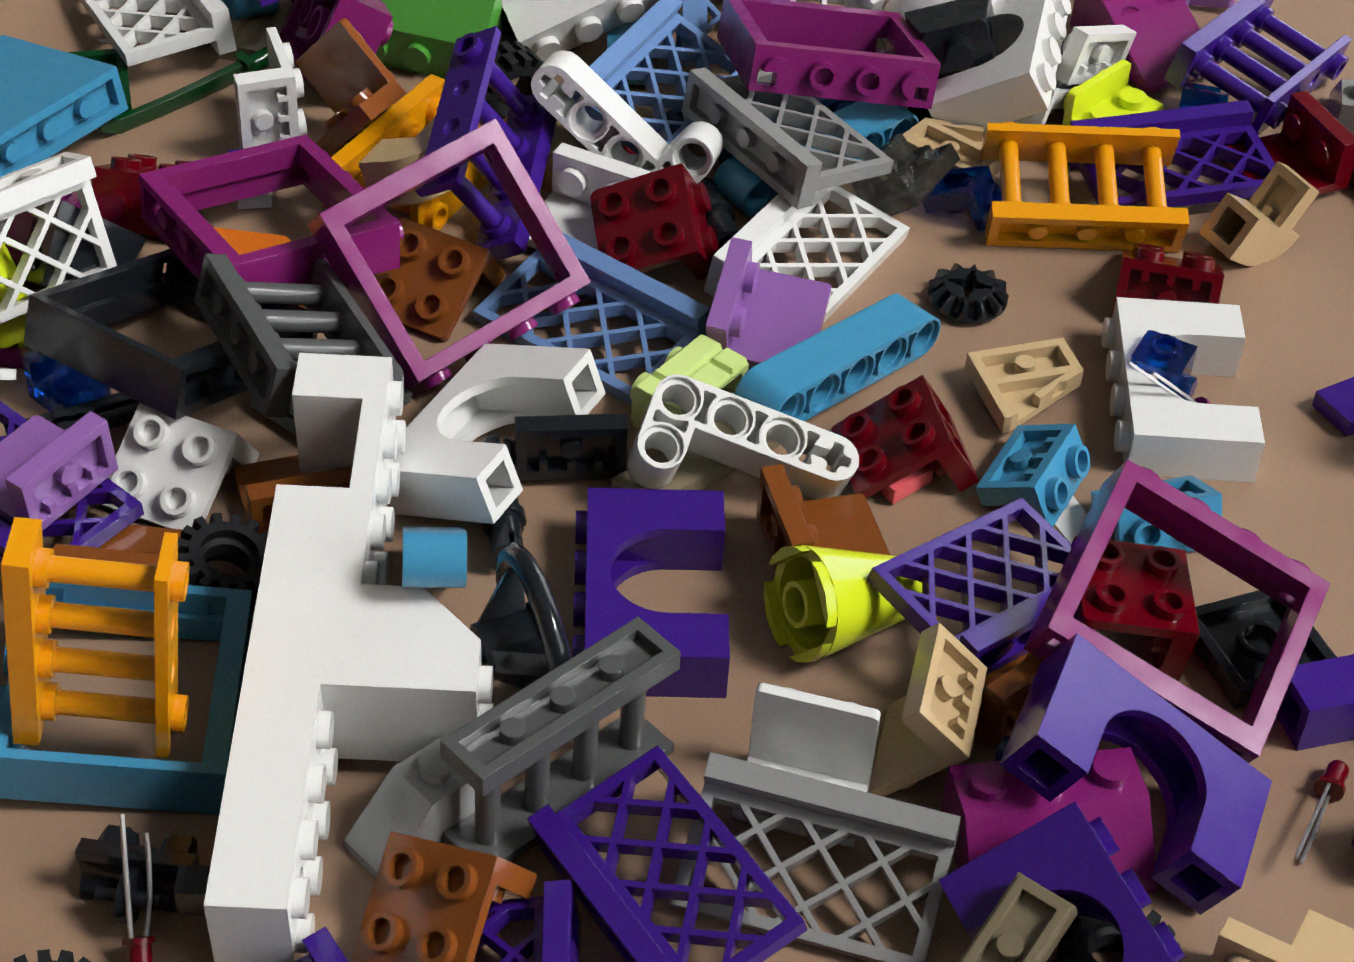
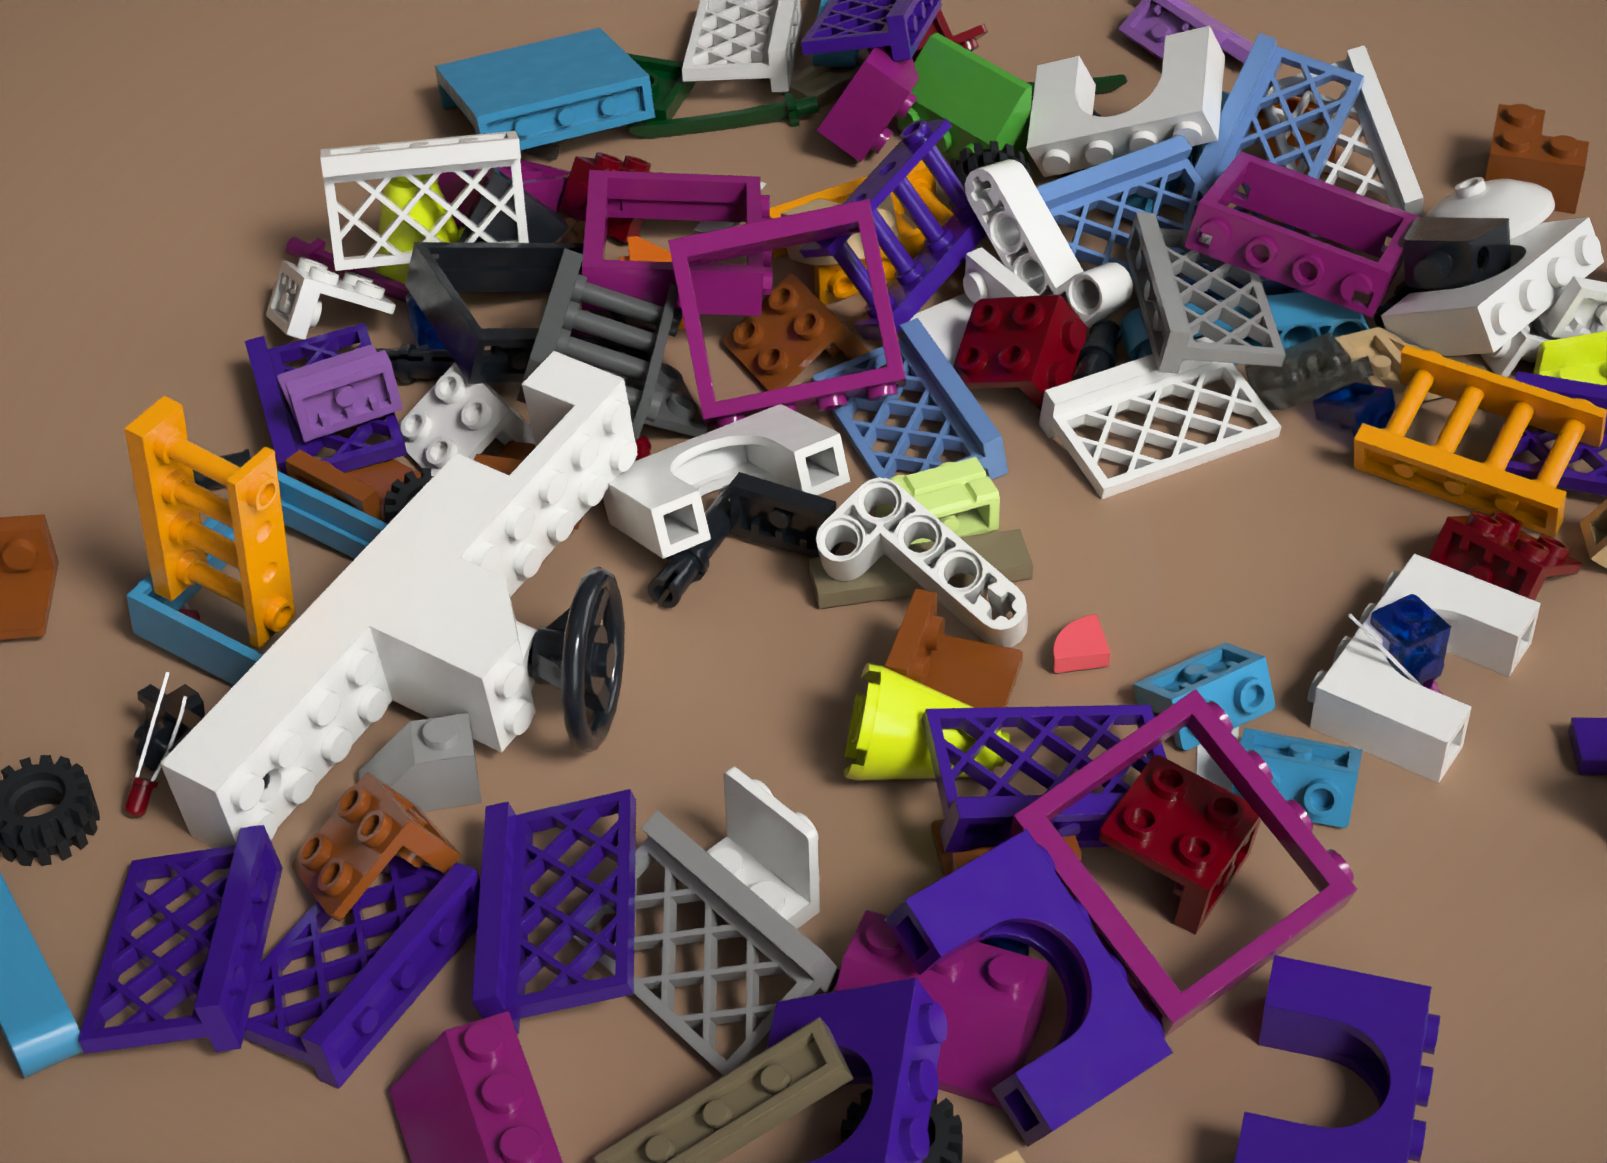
camera: 35 degrees right, 0 degrees up
(269, 98) = (769, 141): white bracket -> none
(350, 82) = (846, 147): dark orange bracket -> none
(434, 557) = (550, 557): dark azure beam -> none
(543, 718) = (541, 717): dark grey fence -> none
(644, 532) = (766, 610): dark purple arch -> none
(763, 309) = (1054, 456): medium lavender bracket -> none
(842, 358) = (1093, 524): dark azure beam -> none
(904, 435) = (1113, 606): dark red bracket -> none
(936, 717) = (891, 849): tan bracket -> none
(984, 304) = (1292, 520): black gear -> none
(1023, 379) = (1271, 602): tan wing -> none
(1238, 639) = (1266, 898): black plate -> none
(1329, 788) = (1253, 1089): piece -> none

